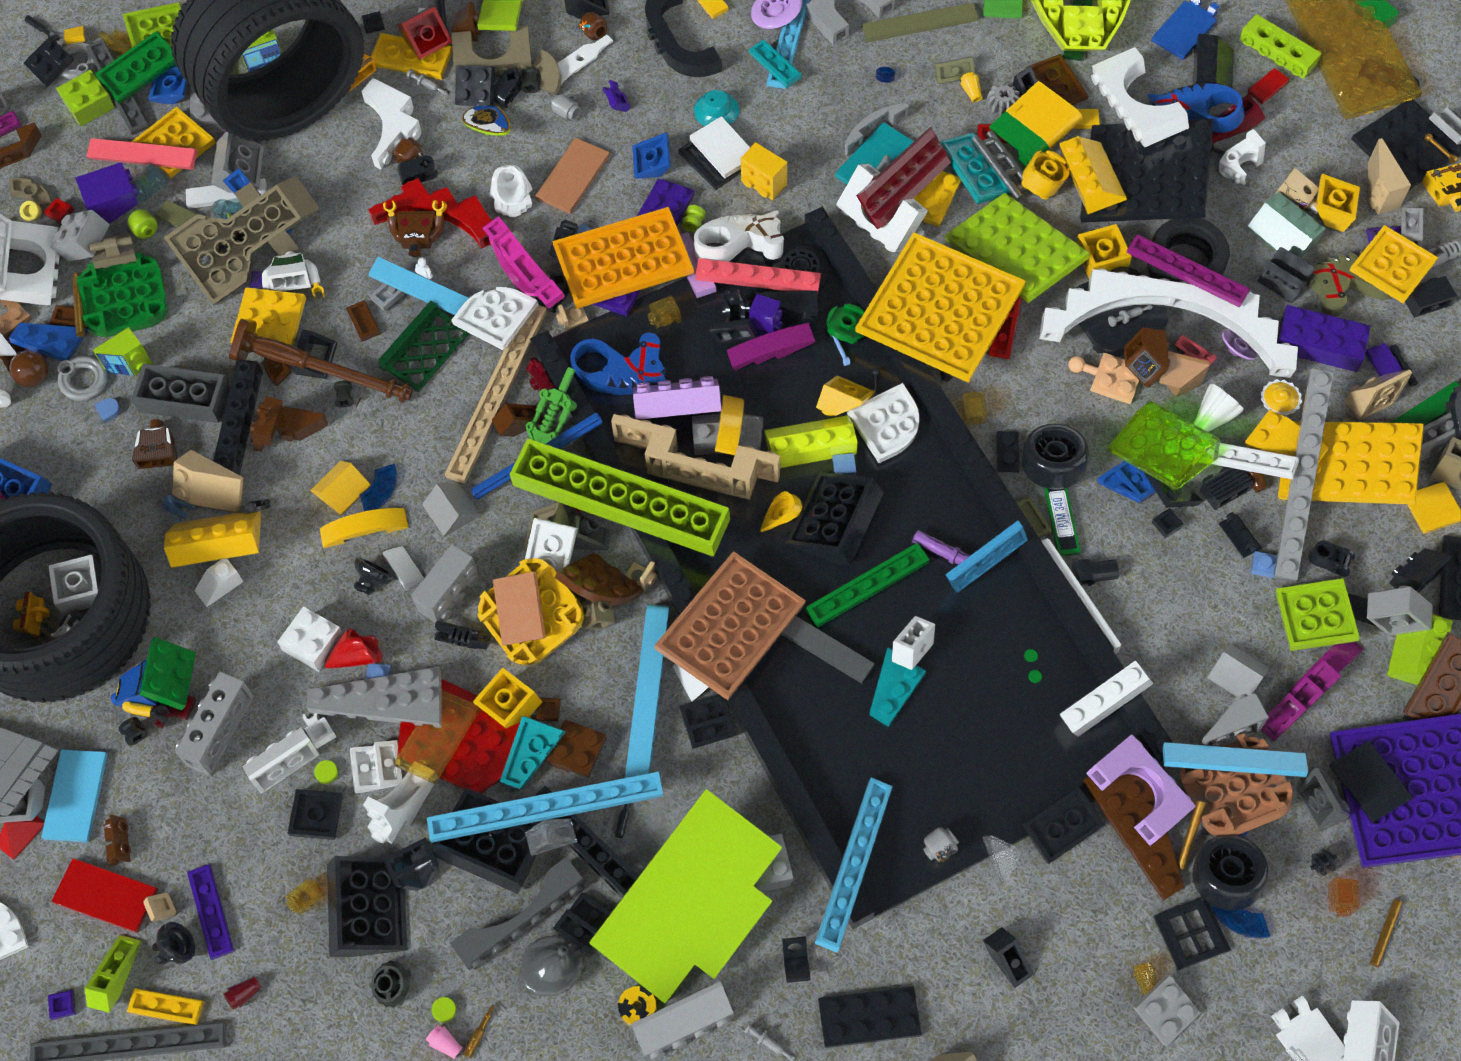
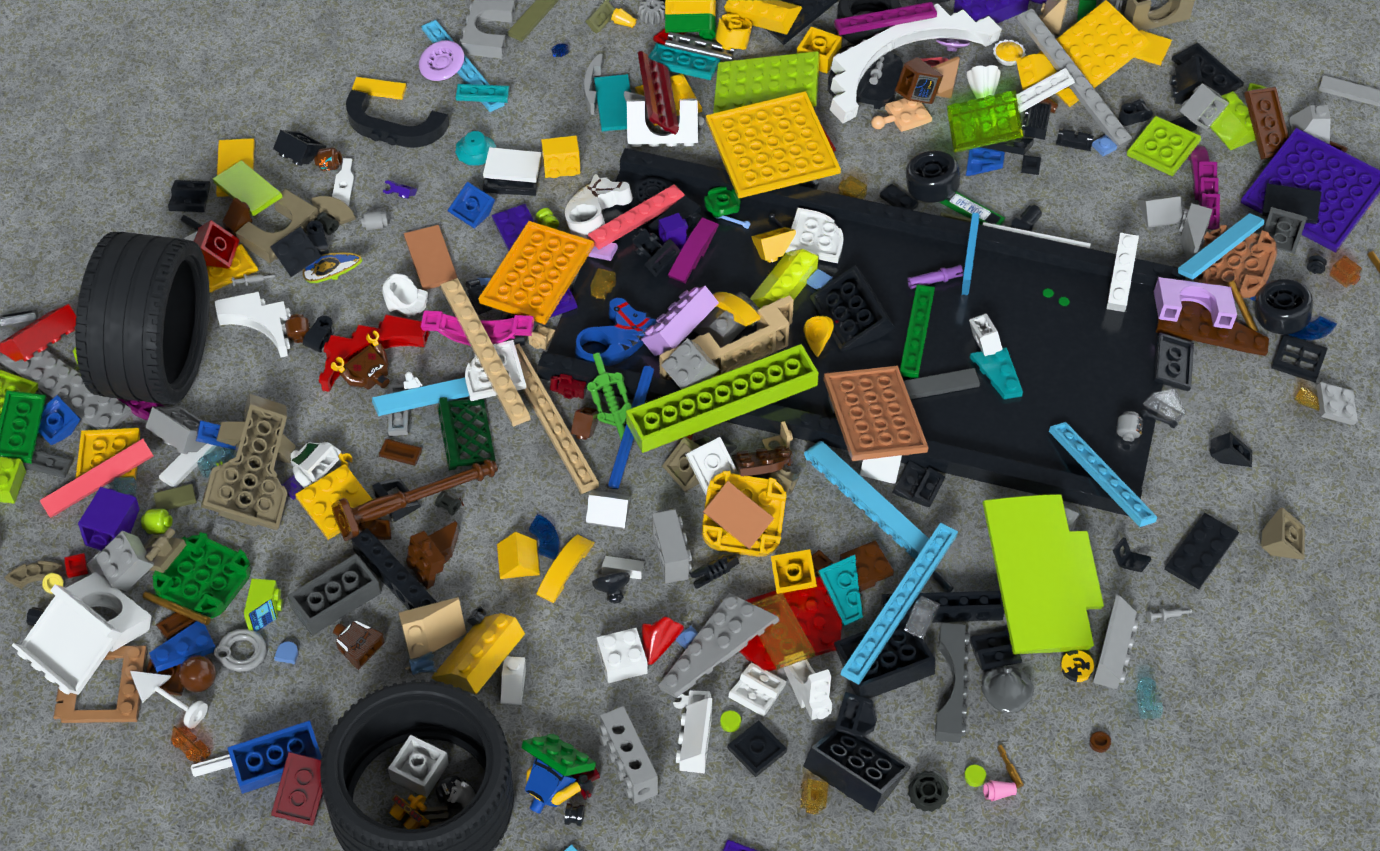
camera: 50 degrees left, 10 degrees down
(502, 292) = (485, 352): none -> tan plate
(624, 445) = (689, 365): none -> light grey brick
(993, 880) = (1172, 424): none -> black hinge

